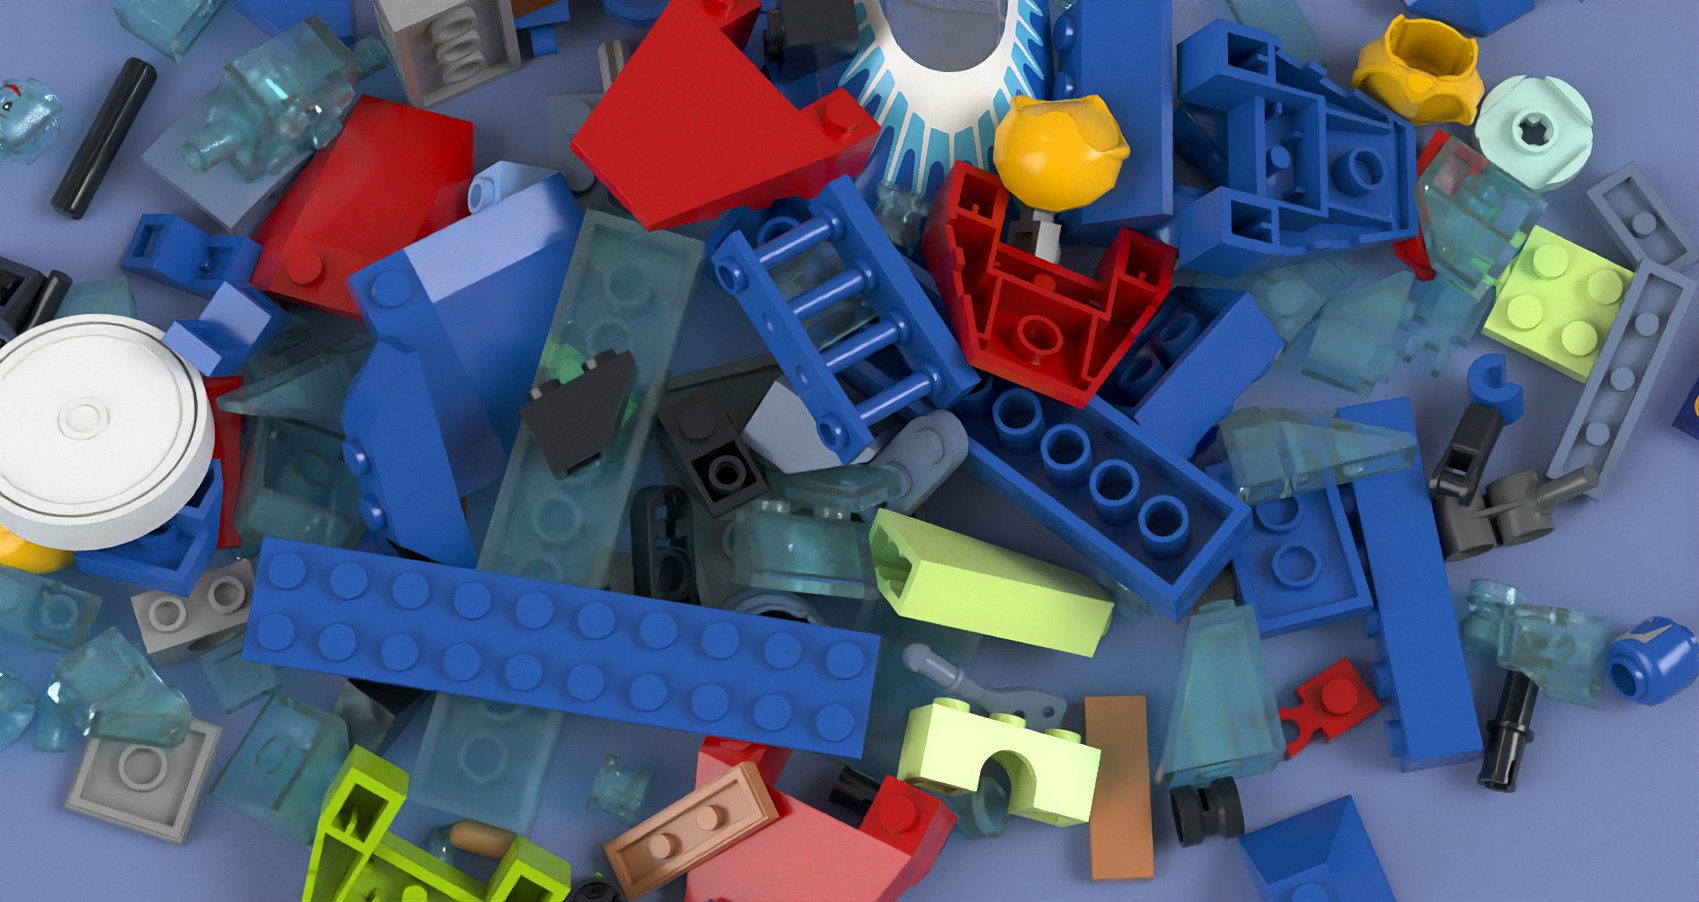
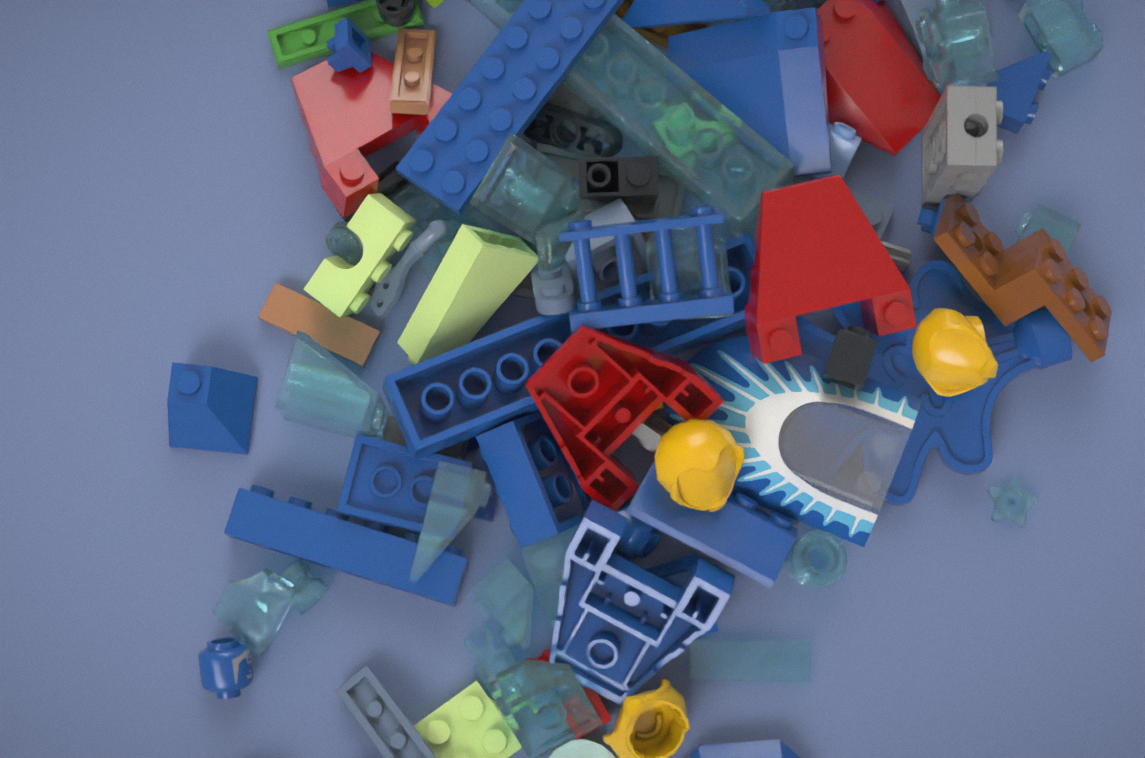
camera: 120 degrees right, 5 degrees up
(583, 417) = (666, 99): black slope -> none
(620, 790) = (460, 52): clear light blue wheel -> none
(901, 212) = (712, 358): clear light blue wheel -> none
(1207, 811) = (274, 362): black wheel -> none
(1328, 704) = (304, 469): red plate -> none
(1490, 407) = (411, 635): black piece -> none
(1509, 514) = (360, 631): dark grey beam -> none
(1509, 733) = (229, 559): black axle -> none

